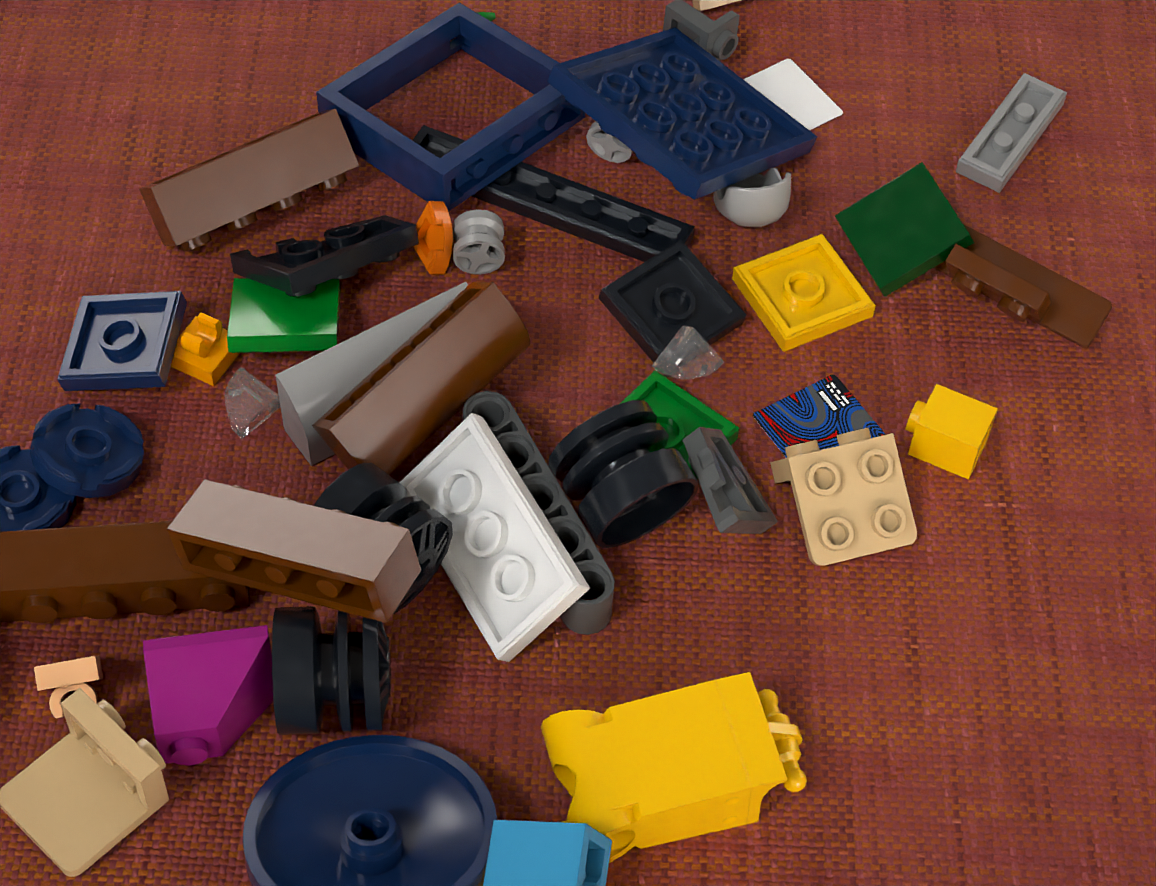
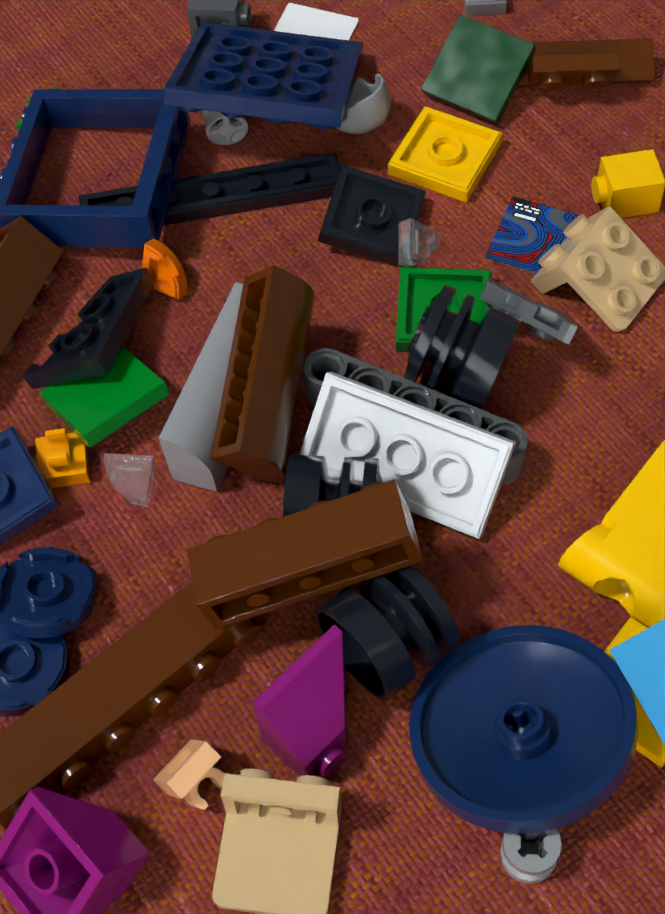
camera: 30 degrees left, 5 degrees up
(478, 242) = (198, 253): light grey wheel -> none

